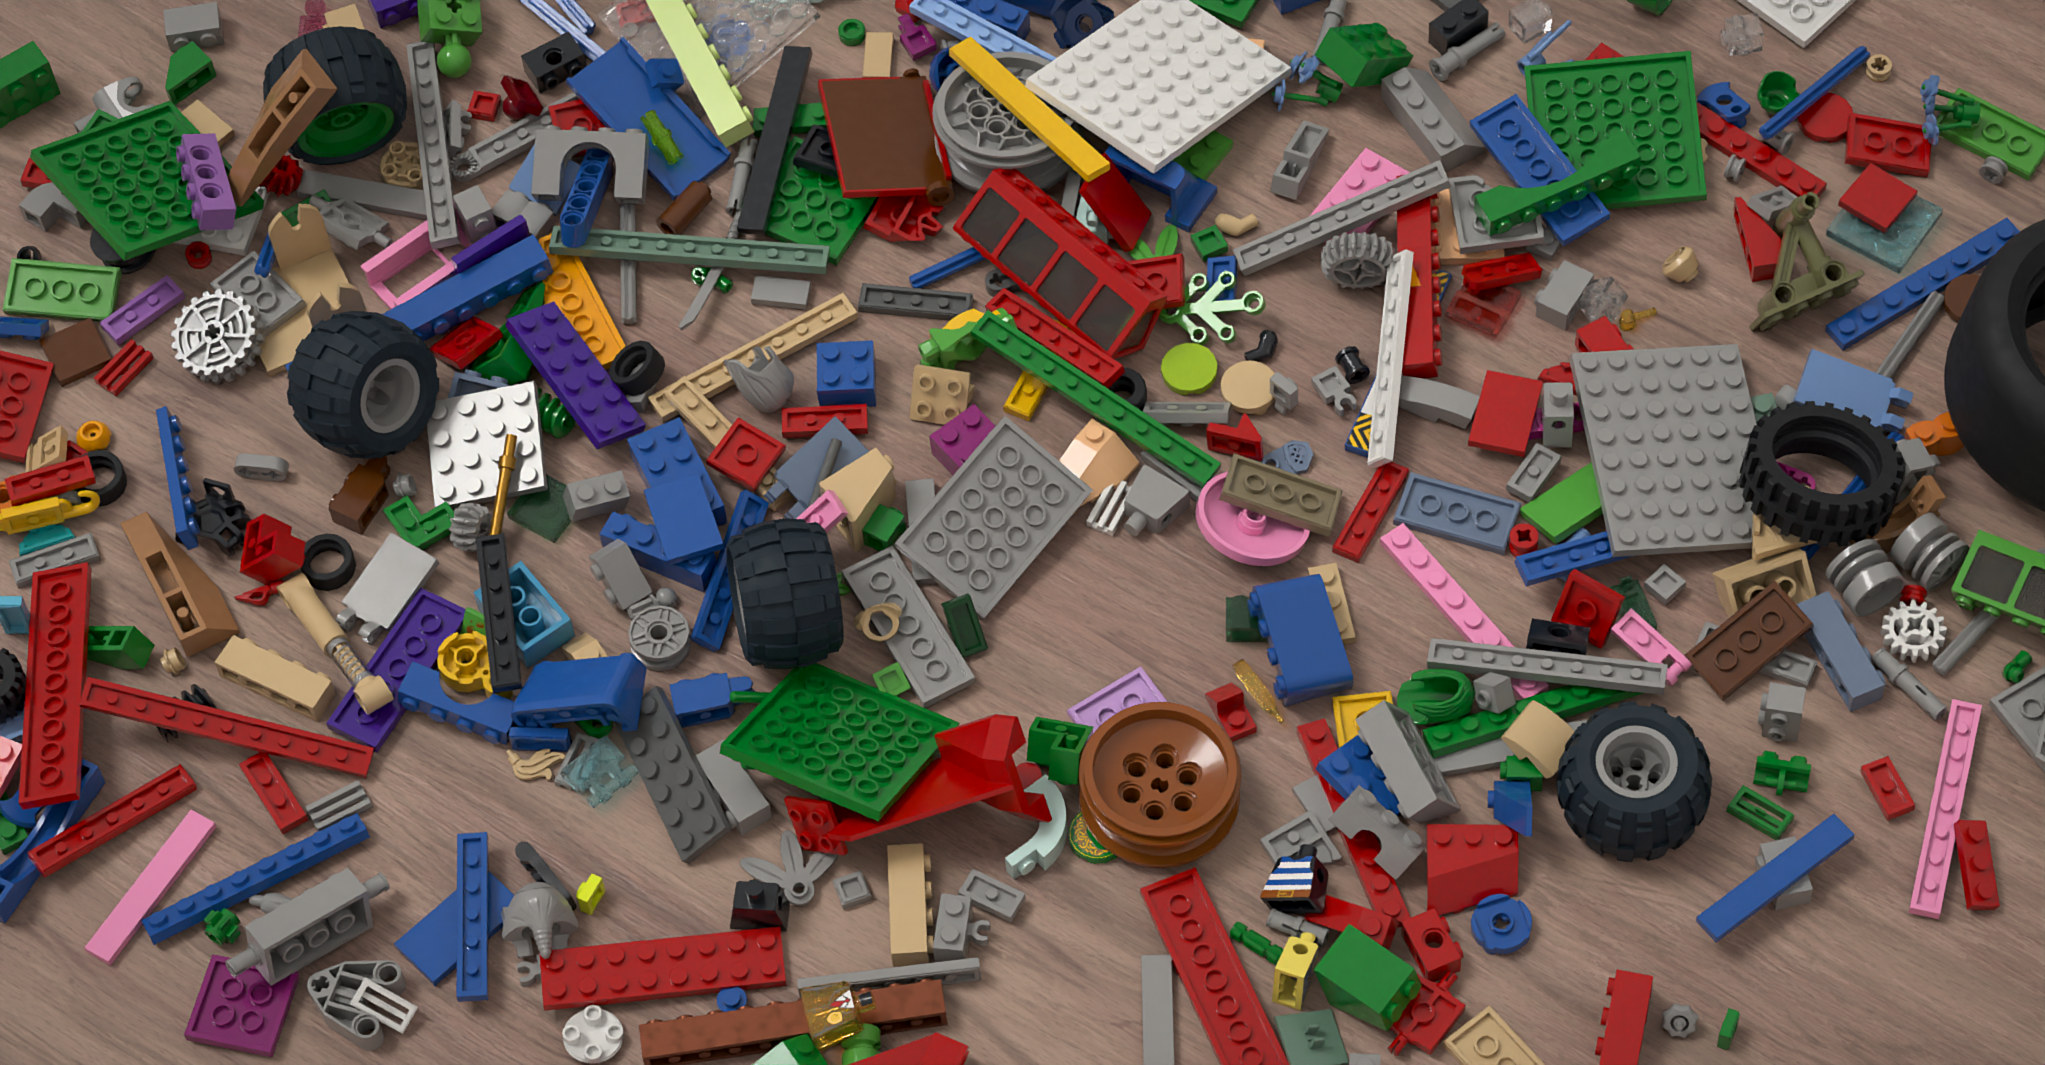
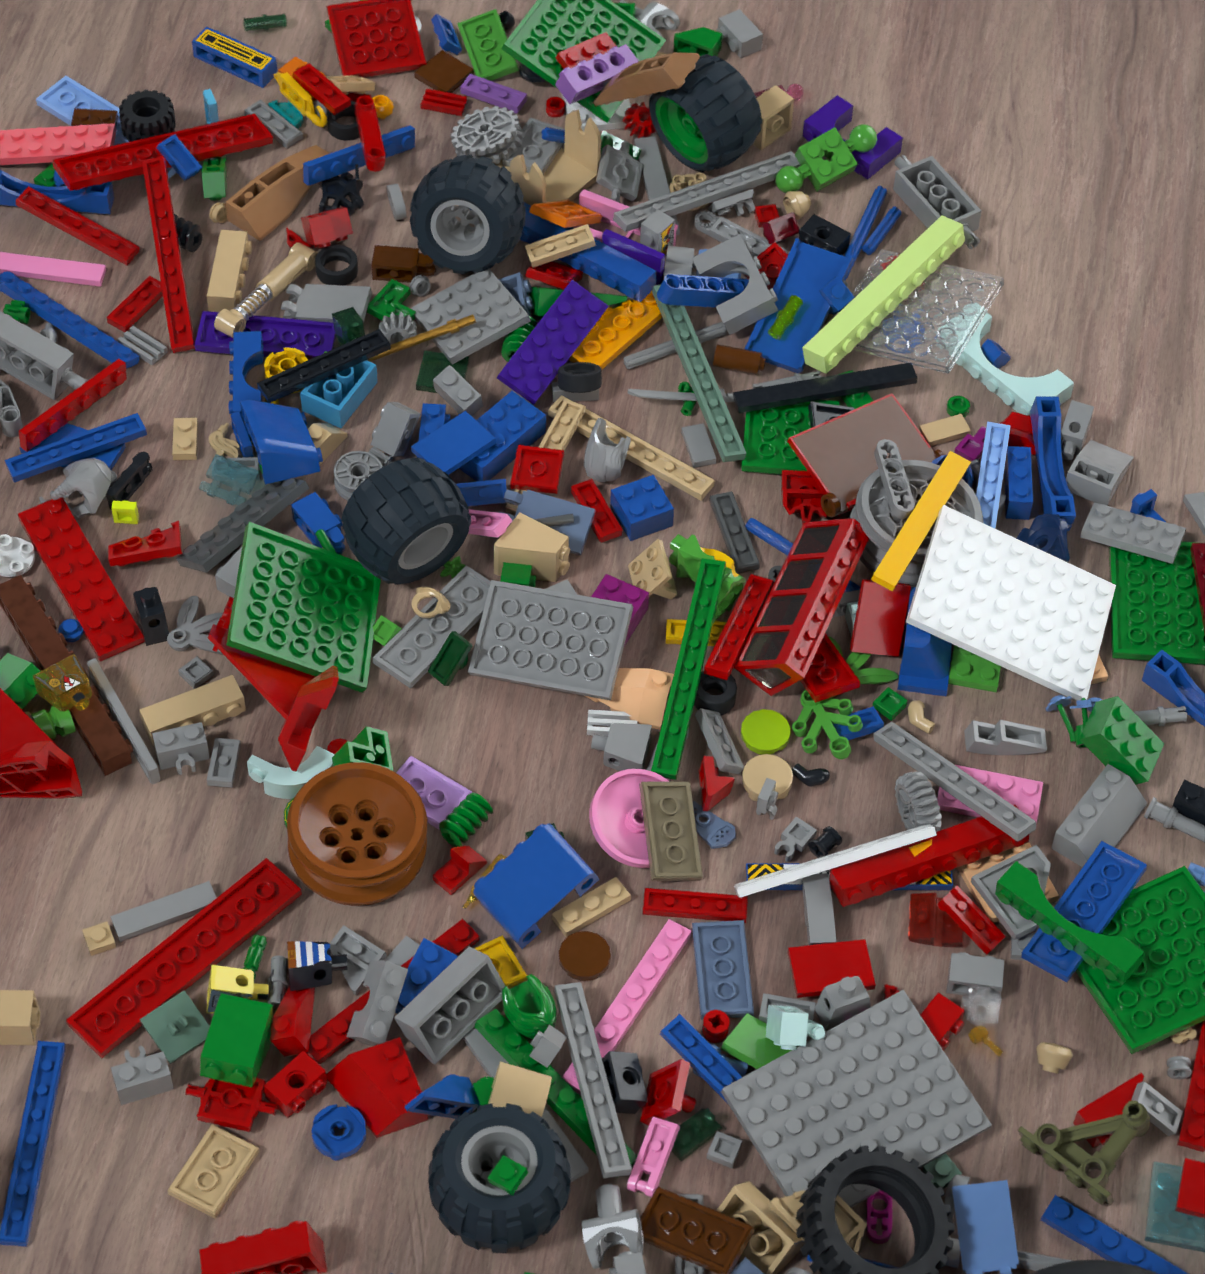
camera: 60 degrees right, 5 degrees down
(80, 665) = (179, 157): none -> blue tile
(158, 451) = (370, 133): none -> red piece
(168, 180) = (585, 50): none -> plate
(392, 293) = (565, 213): none -> orange tile
(412, 909) = (72, 405): none -> red plate
(446, 314) = (560, 245): none -> tan plate
(451, 575) = (347, 325): none -> clear green slope
(489, 69) = (797, 203): none -> tan cone
(506, 802) = (185, 439): none -> tan plate
(654, 880) = (154, 546): none -> red wing
(965, 108) = (899, 478): none -> light grey beam
(1177, 680) = (465, 819): none -> green piece
(1388, 631) = (584, 955): none -> reddish brown tile
(1569, 467) = (791, 1026): none -> light aqua brick
(1662, 755) = (507, 1175): none -> green plate
(1713, 710) = (611, 1226): none -> light grey connector

